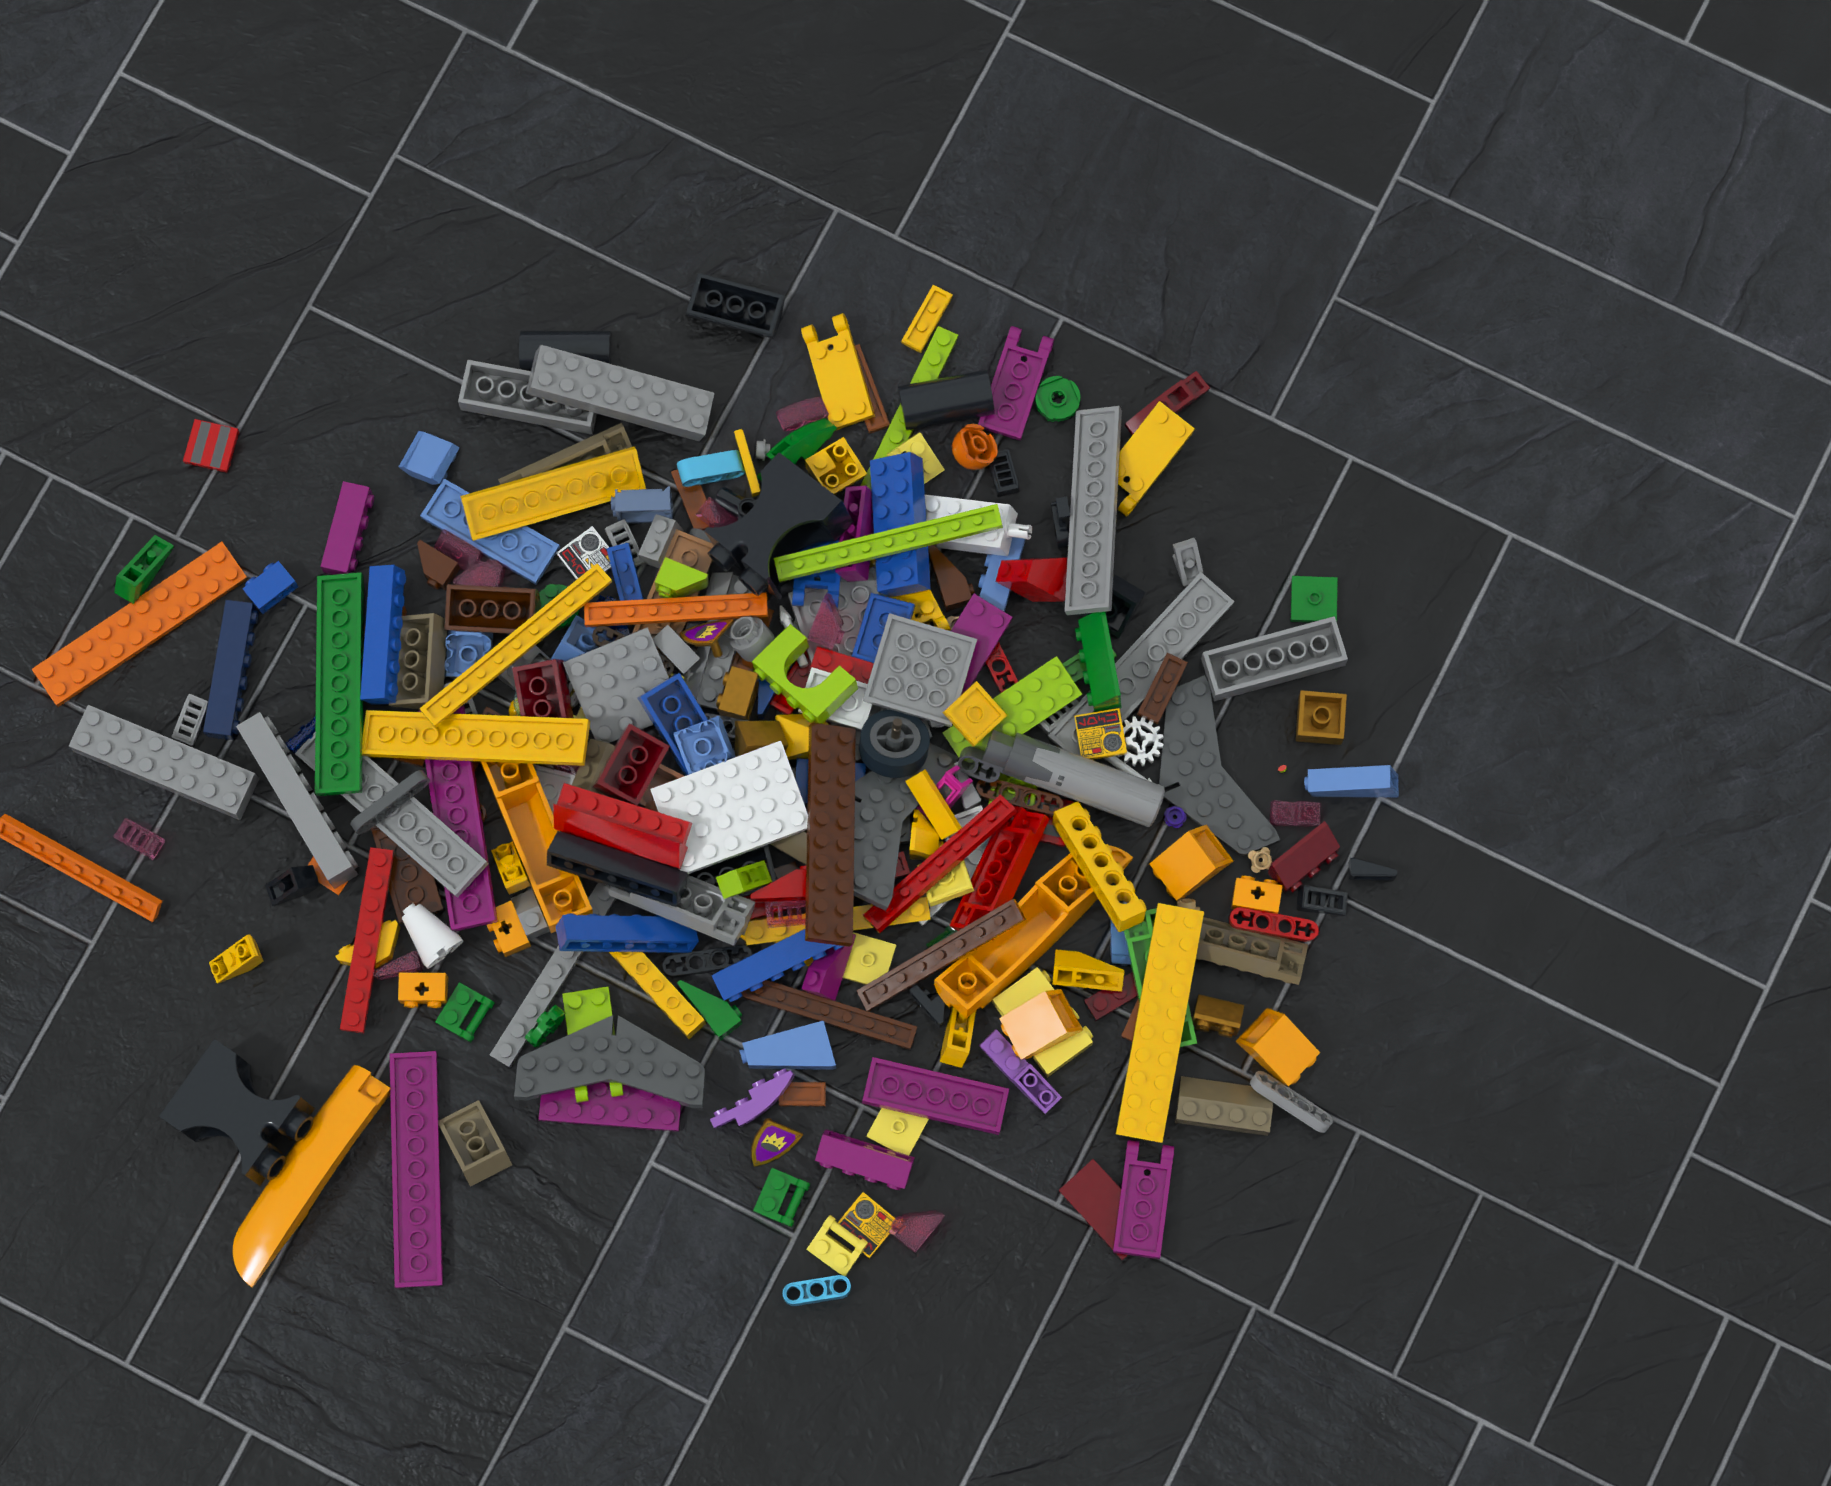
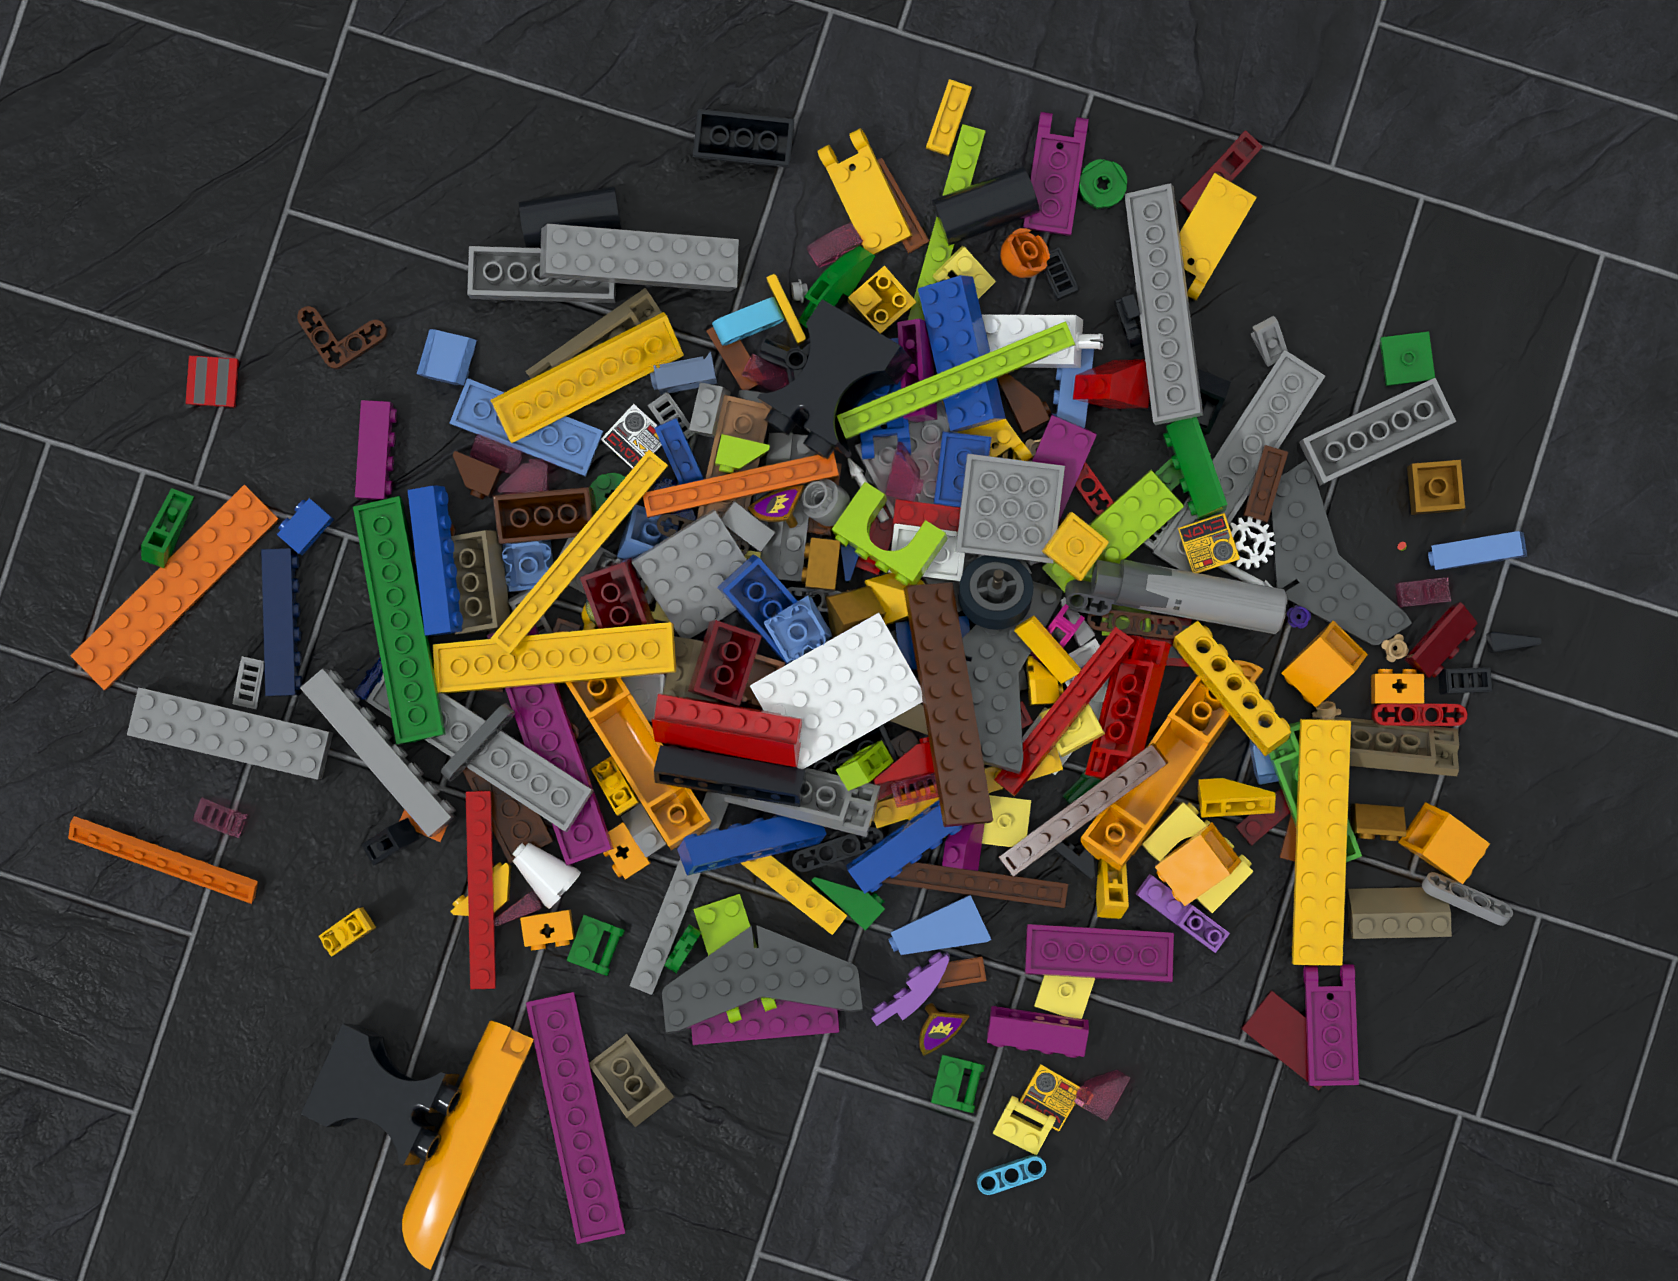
camera: 10 degrees left, 10 degrees up
(336, 433) = (342, 346): none -> reddish brown beam

